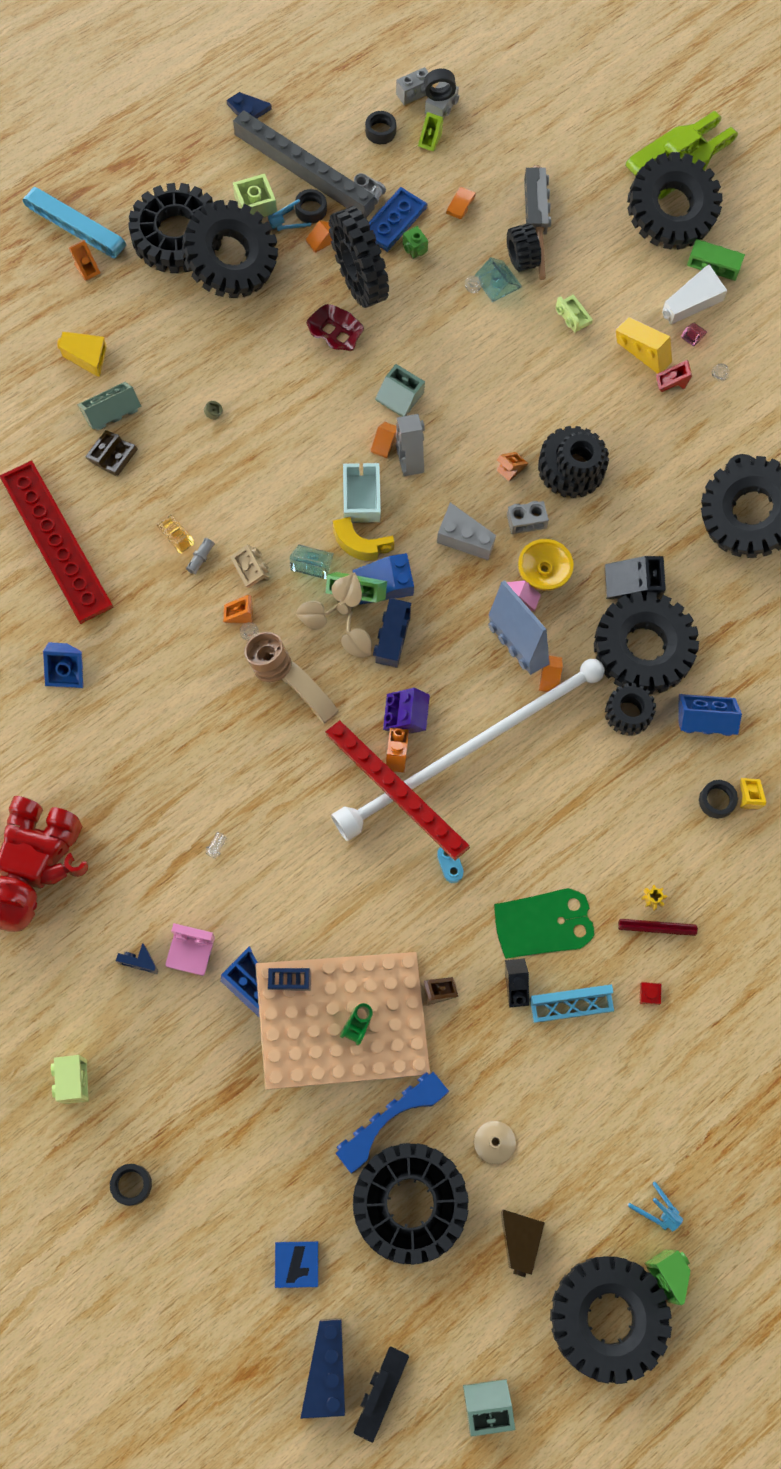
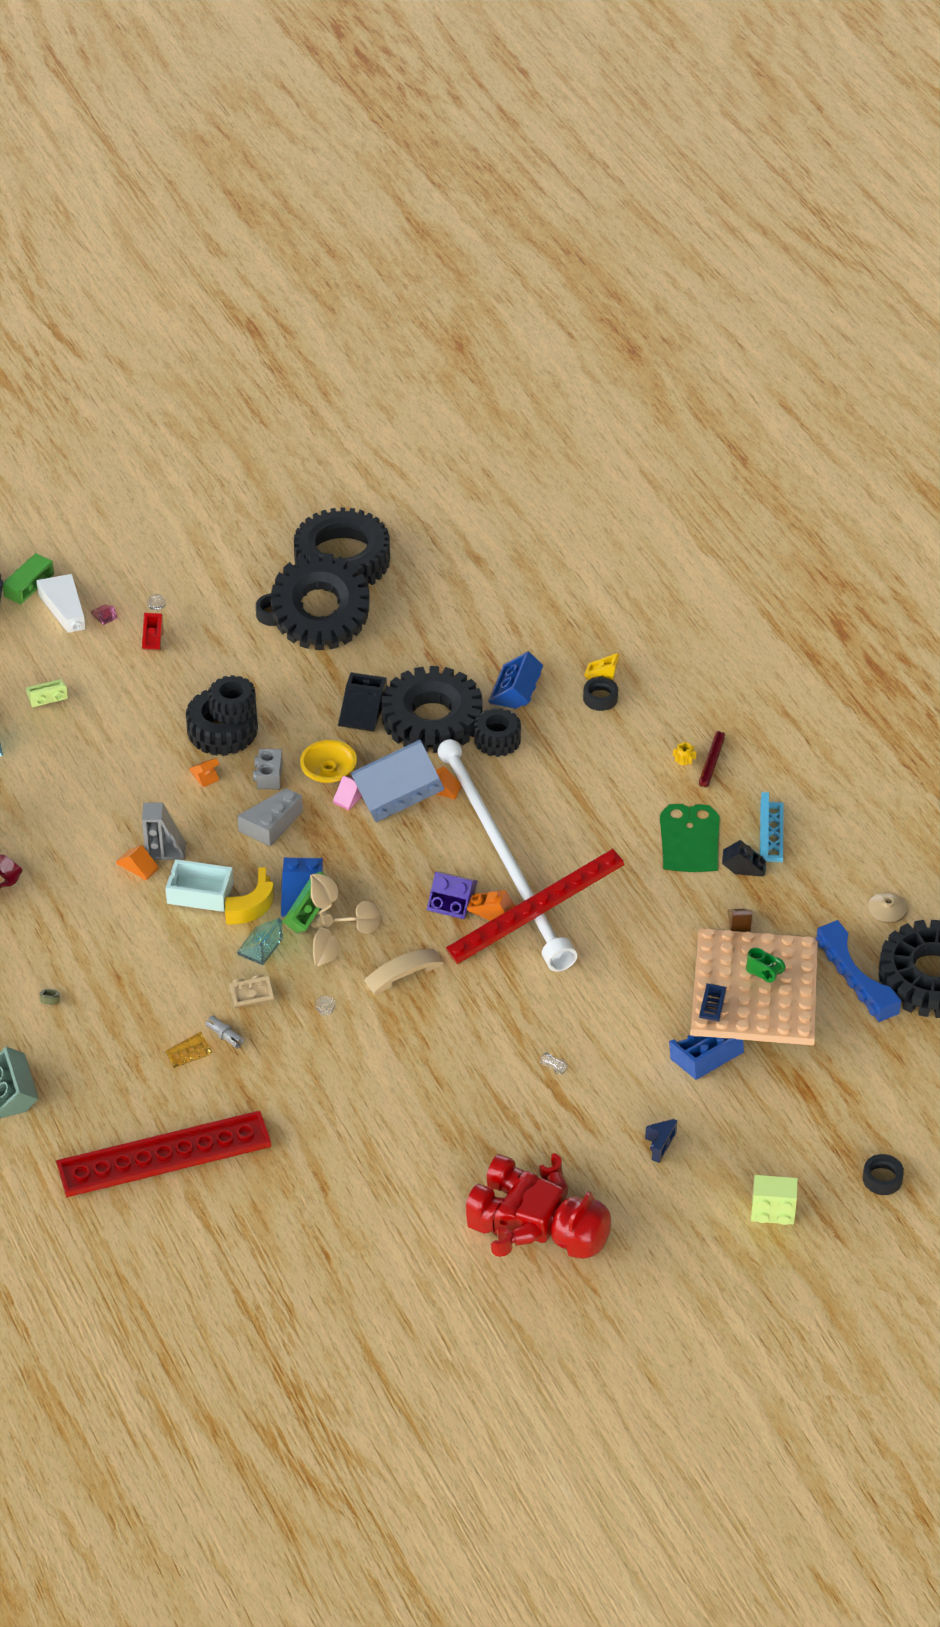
camera: 75 degrees left, 25 degrees down
(63, 665) = (318, 1161): blue slope -> none
(111, 453) = (69, 1093): dark brown slope -> none
(190, 949) = (657, 1097): bright pink bracket -> none
(239, 610) = (301, 1004): orange slope -> none
(268, 657) = (365, 983): medium nougat wheel -> none
(393, 632) = (360, 885): dark blue wedge -> none
(400, 390) = (88, 836): sand green slope -> none
(446, 864) = (616, 891): medium azure plate -> none
(645, 344) = (106, 645): yellow wedge -> none
(650, 993) = (772, 776): red plate -> none

